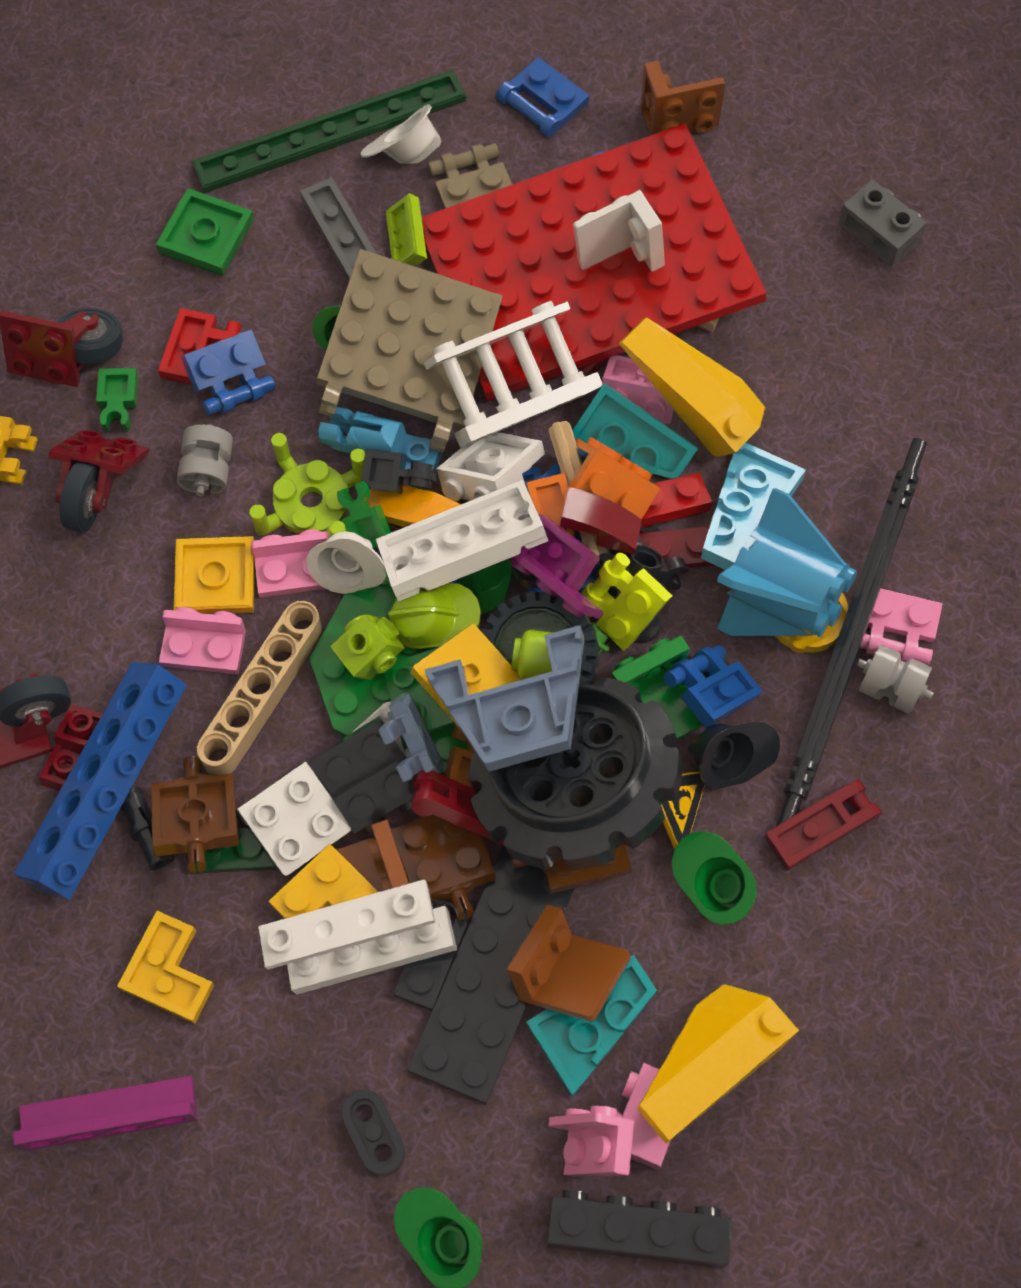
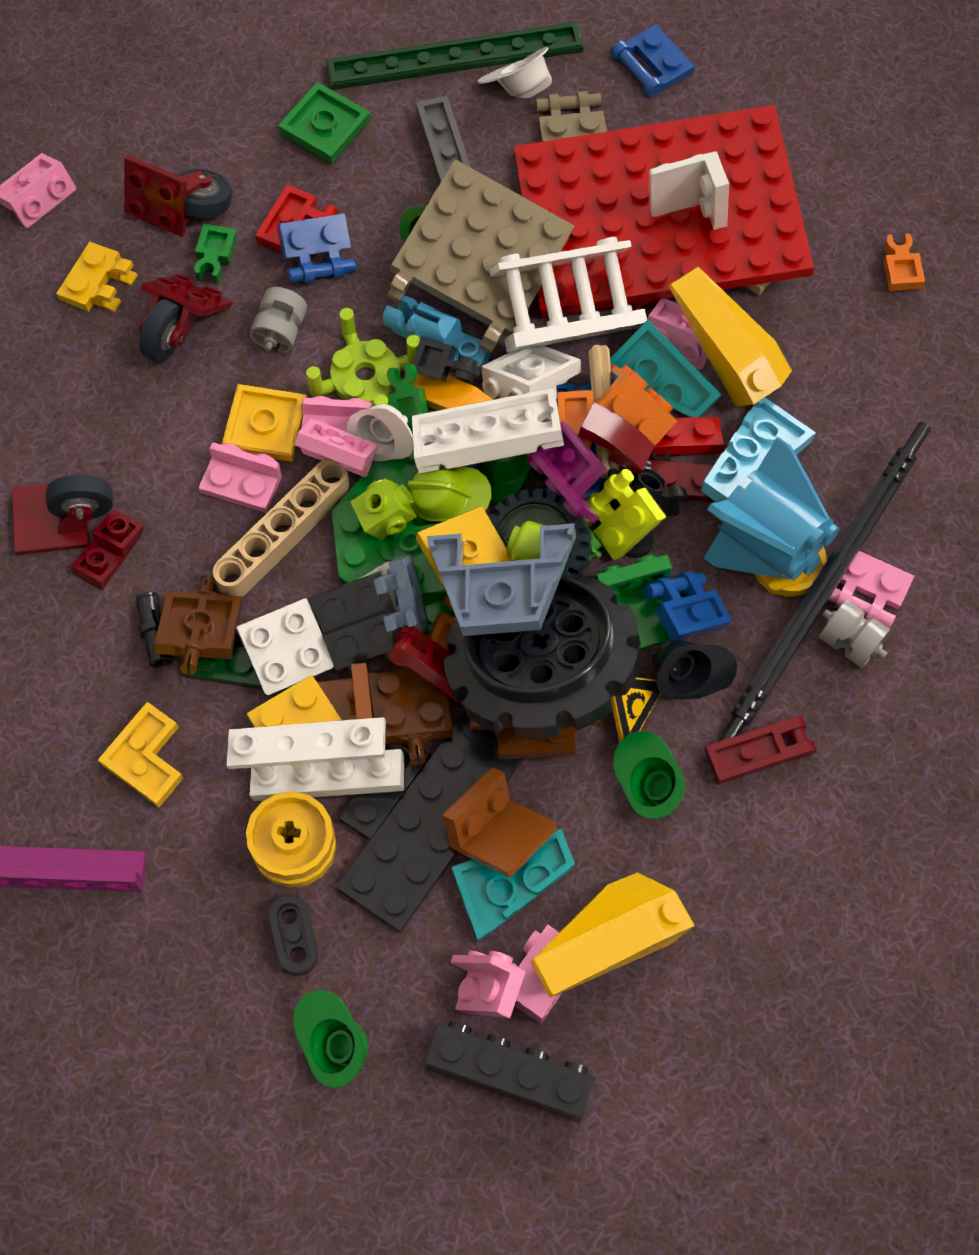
camera: 10 degrees right, 0 degrees up
(100, 780) = (123, 578): blue brick -> none
(301, 586) = (329, 442): none -> bright pink bracket
(342, 1004) = (288, 817): none -> yellow wheel
(406, 231) = (502, 154): lime plate -> none
(668, 107) = (785, 88): dark orange bracket -> none
(856, 273) = (902, 268): none -> orange plate
(882, 222) = (936, 227): dark grey brick -> none

